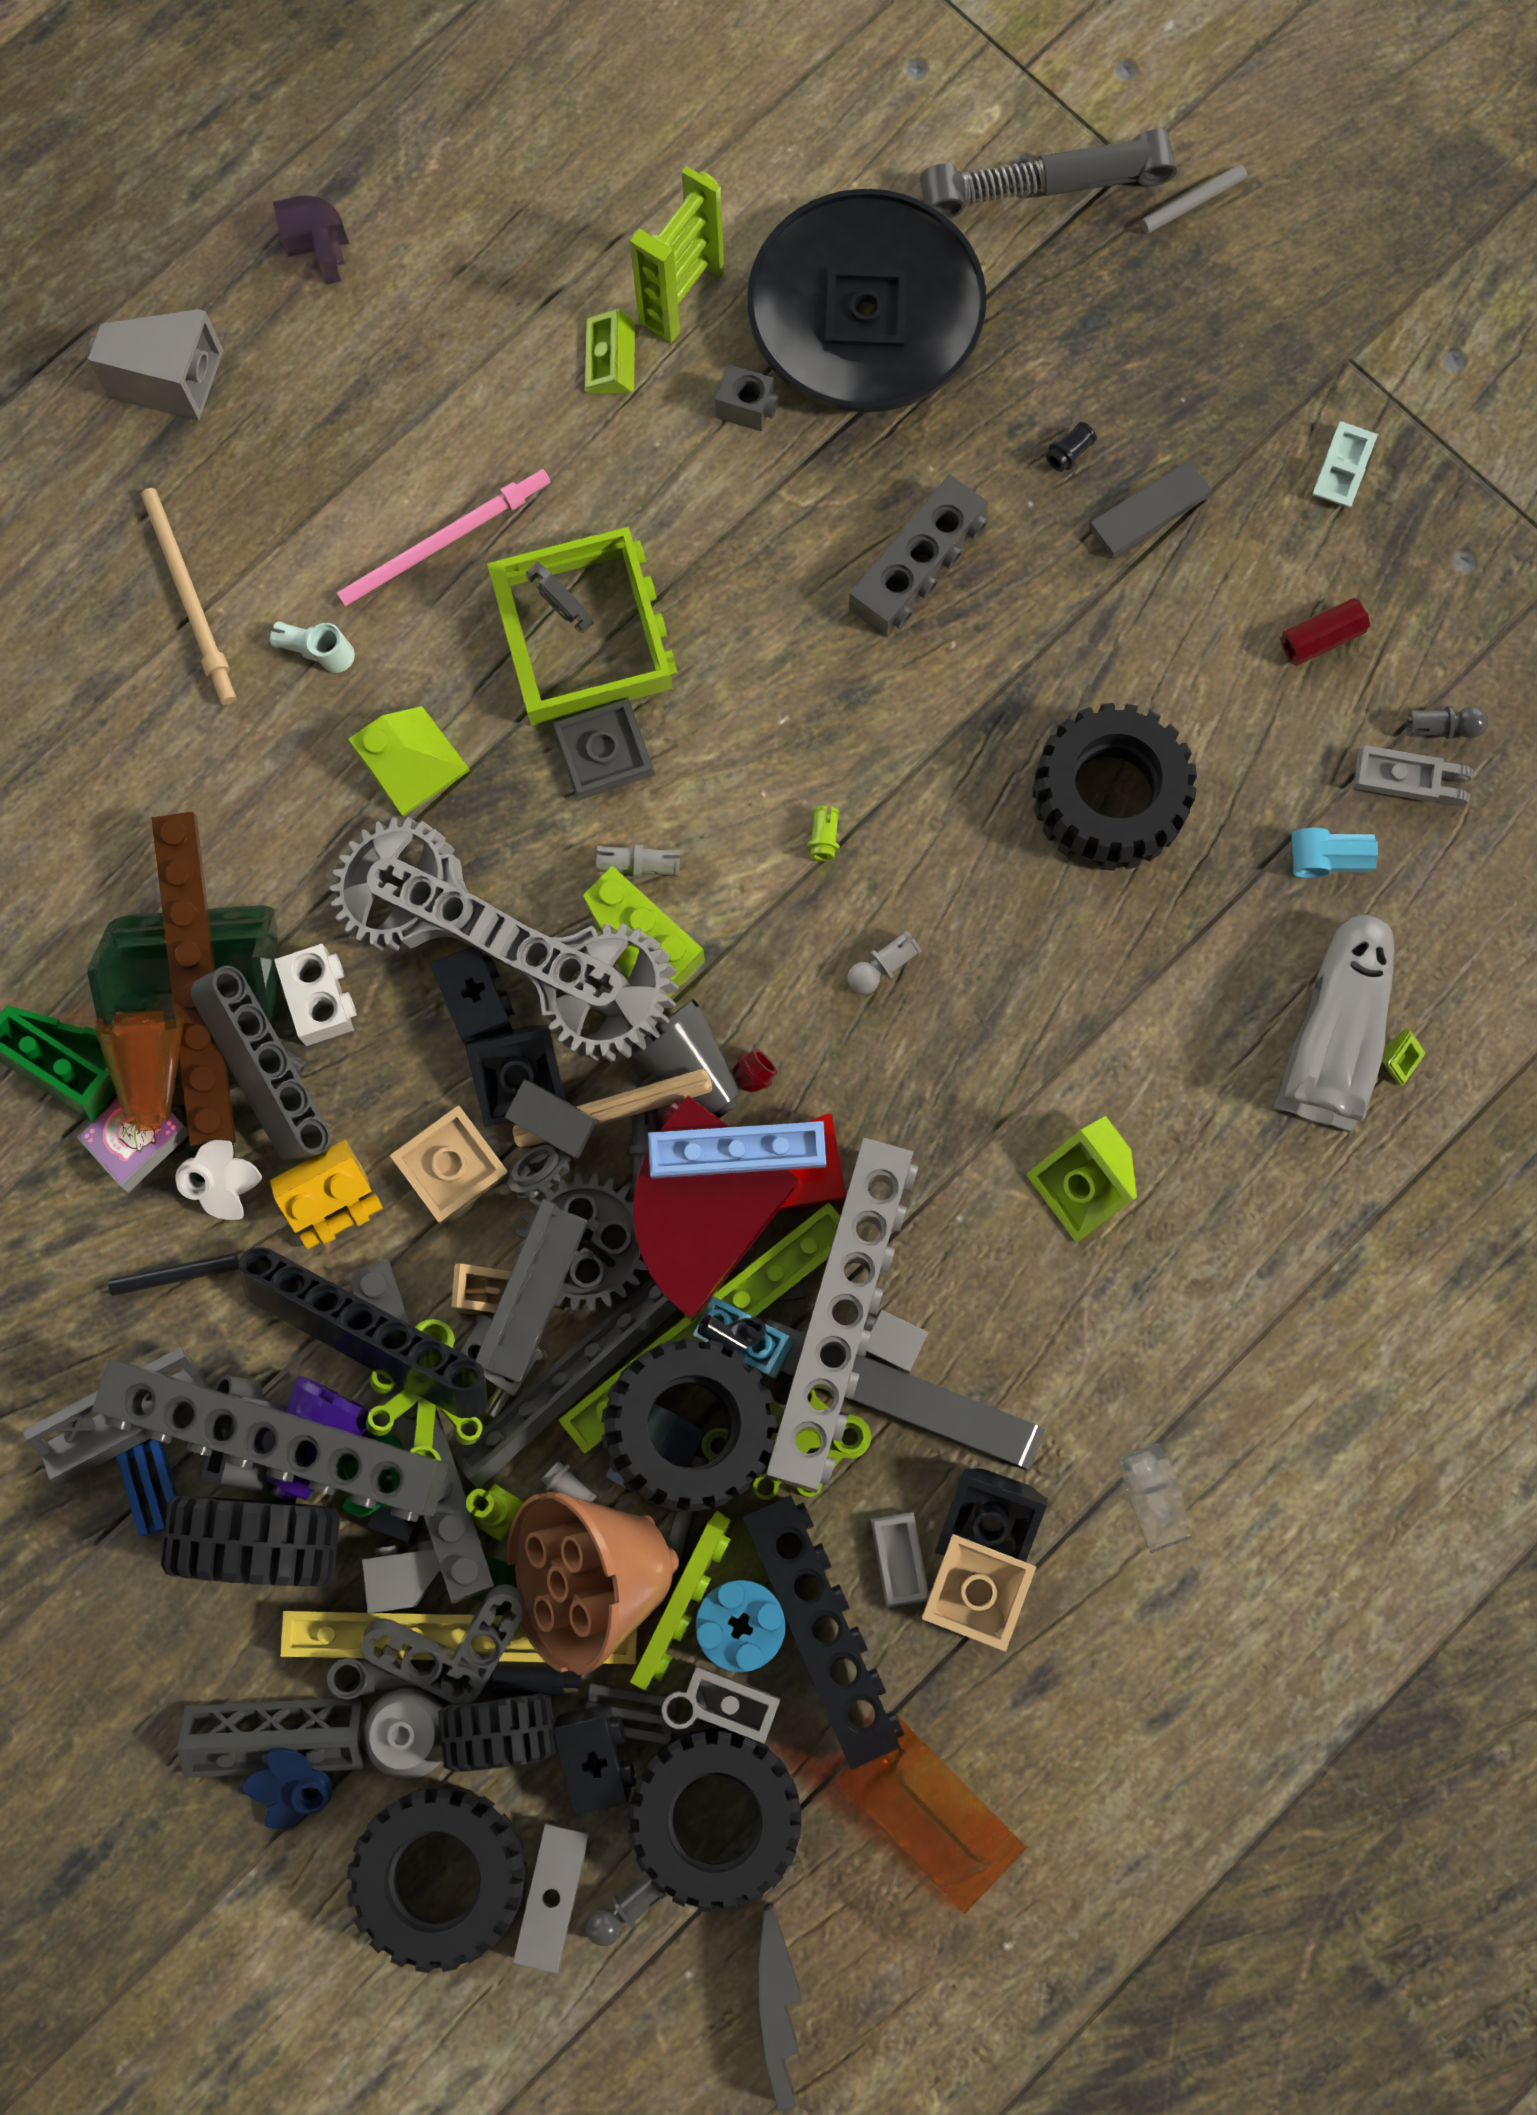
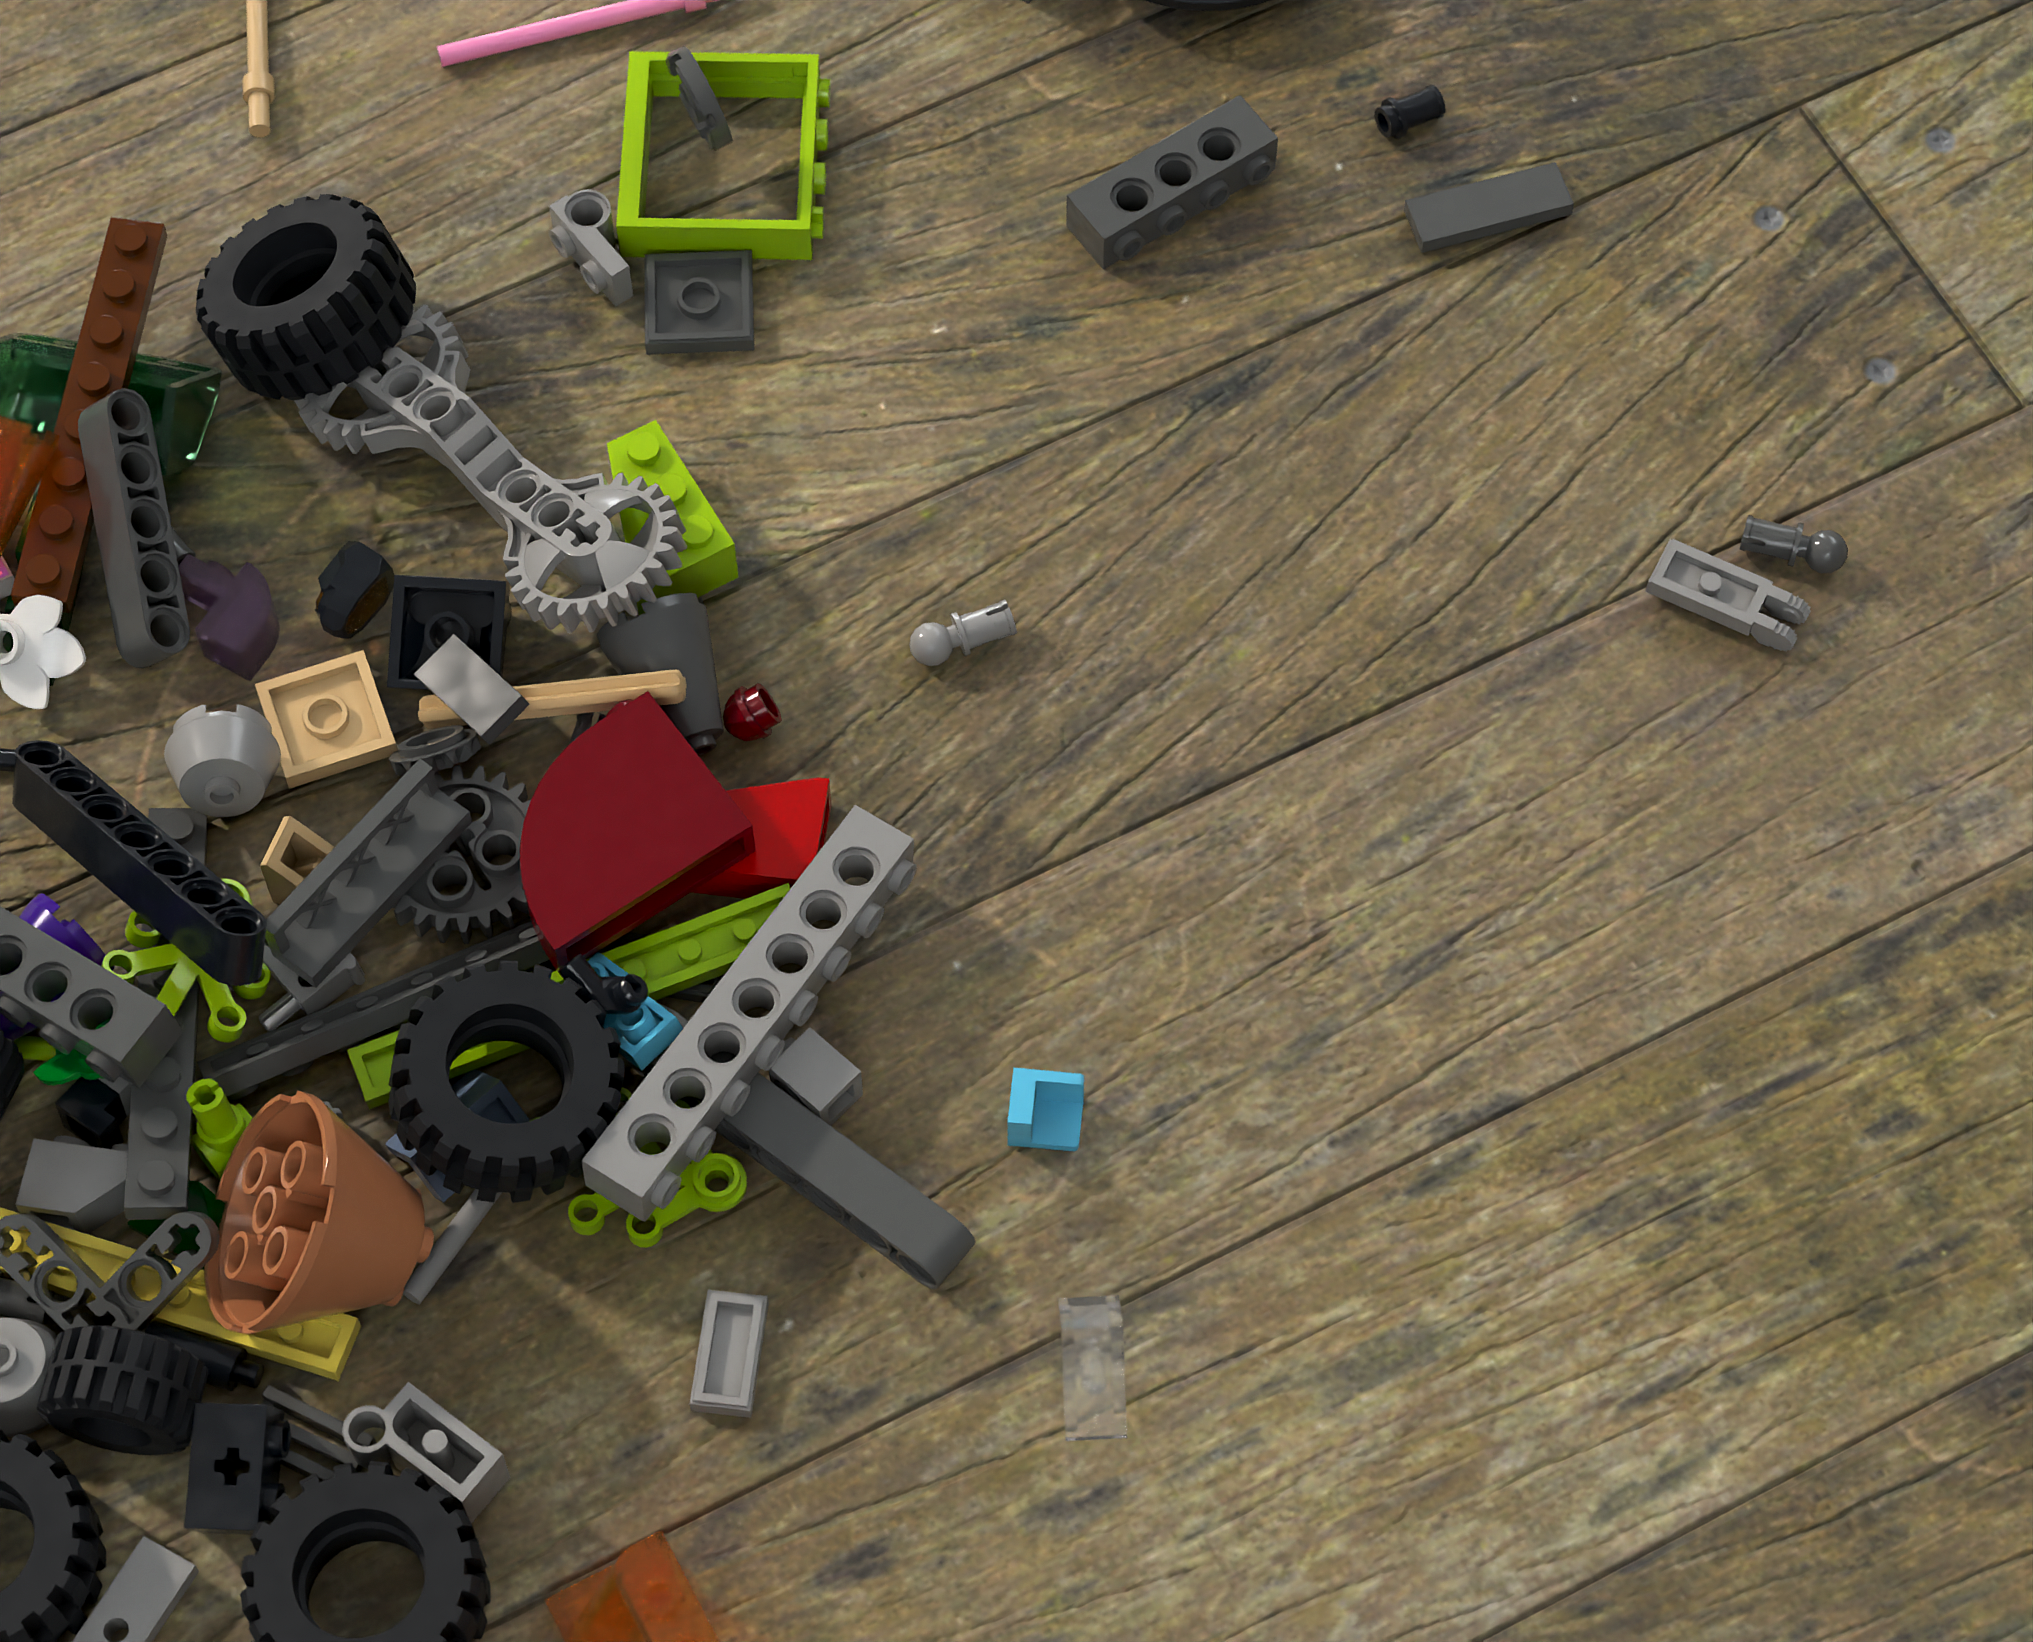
camera: 15 degrees right, 15 degrees down
(289, 816) = (306, 297): none -> black tyre
(307, 998) = (227, 479): white brick -> none
(313, 644) = (392, 92): light aqua pin -> none
(322, 1187) = (147, 697): yellow brick -> none
(362, 1101) = (240, 617): none -> clear purple brick
(391, 1228) = (222, 759): none -> light grey cone
(408, 757) = (453, 245): lime slope -> none
(432, 1058) = (353, 590): none -> black rock
(456, 978) = (428, 524): black brick -> none
(523, 743) = (591, 245): none -> light grey plate
(638, 860) = (698, 436): light grey pin -> none
(690, 1587) = (429, 1302): lime wing -> none
(716, 1635) = (489, 1331): dark azure brick -> none
(737, 1149) = (685, 767): light blue tile -> none
(767, 1528) = (570, 1257): black brick -> none
(824, 832) = (936, 474): lime pin -> none
(978, 1592) = (813, 1410): tan slope -> none
(994, 1513) = (863, 1334): black slope -> none
(1060, 1316) = (1045, 1109): none -> medium azure panel
(1087, 1178) = (1134, 947): lime slope -> none
(1130, 738) = (1337, 440): black tyre -> none
(1320, 853) = (1575, 652): medium azure piece -> none
(1325, 631) = (1666, 399): dark red axle -> none
(1344, 464) = (1757, 218): light aqua slope -> none
(1344, 1028) = (1521, 866): light grey piece -> none
(1402, 1056) = (1606, 922): lime slope -> none

